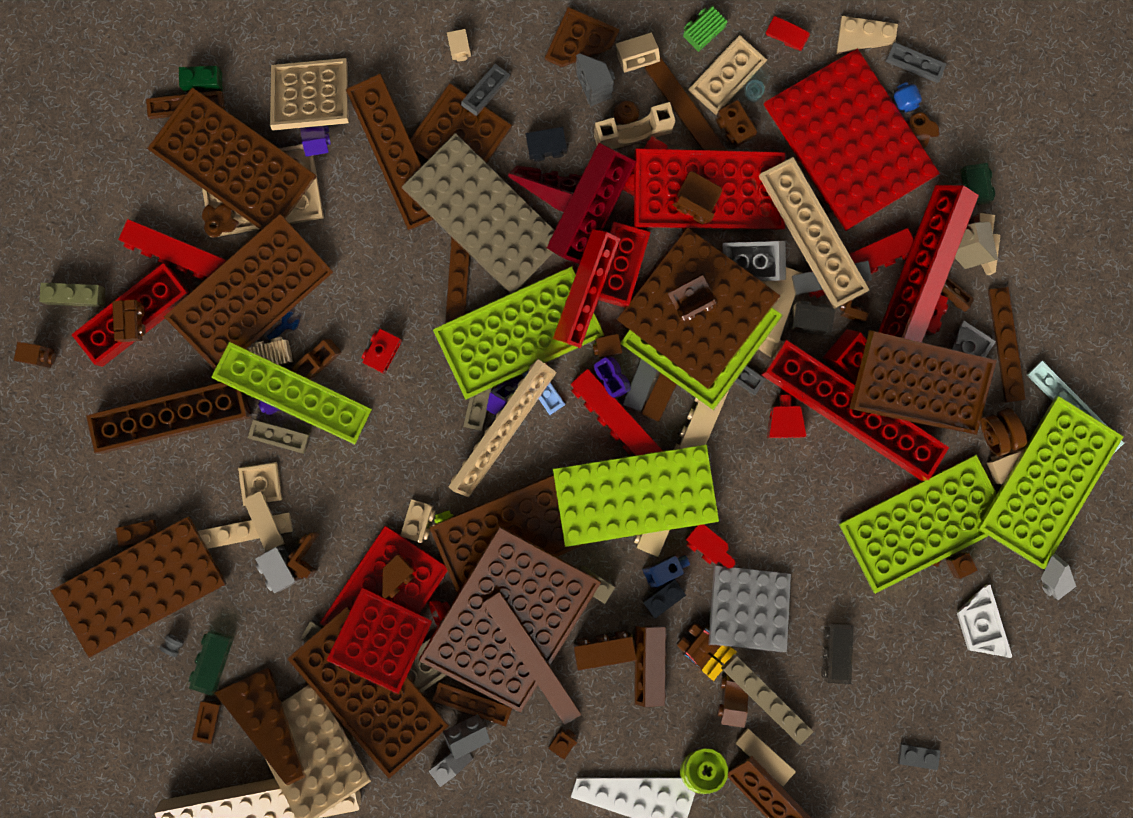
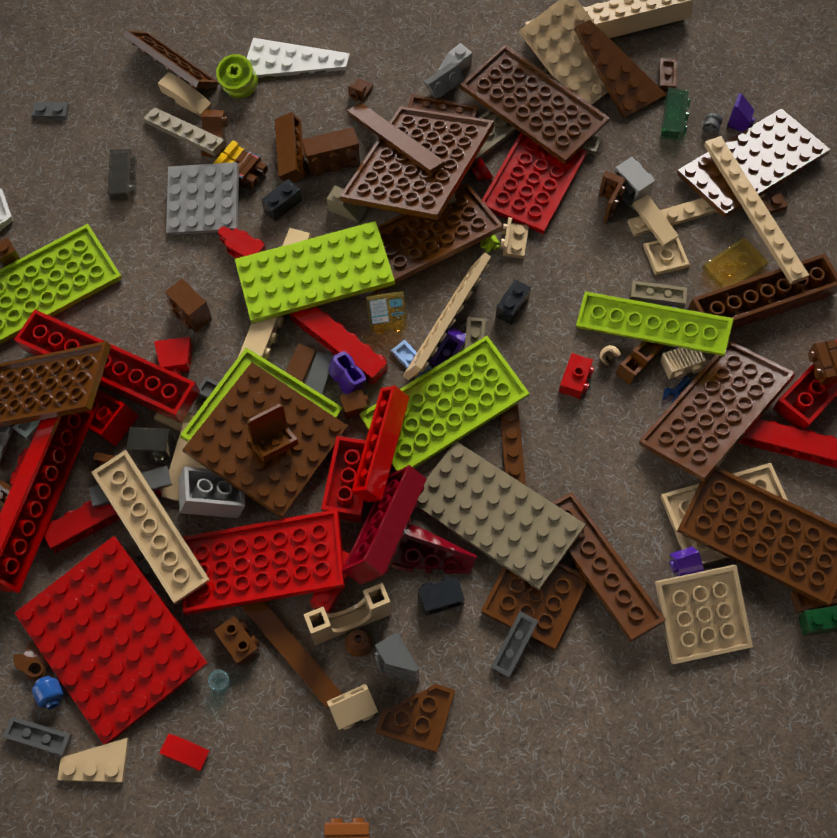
camera: 175 degrees right, 20 degrees down
(137, 649) = (741, 115): none -> dark purple slope
(154, 516) = (756, 210): none -> tan plate
(190, 461) = (735, 263): none -> clear yellow plate
(221, 217) = (764, 478): reddish brown plate -> none
(344, 375) = (609, 351): none -> tan arm
(379, 641) = (531, 135): red plate -> none
(394, 574) = (526, 189): reddish brown slope -> none
(431, 442) = (513, 301): none -> black brick
(459, 45) = (552, 692): tan brick -> none
(564, 441) = (386, 312): none -> clear yellow slope
(659, 573) = (282, 218): dark blue torso -> none
(697, 198) = (274, 542): reddish brown bracket -> none
(704, 28) = (279, 746): bright green brick -> none
(727, 74) = (249, 699): tan tile -> none
(770, 473) = (188, 305): none -> reddish brown brick

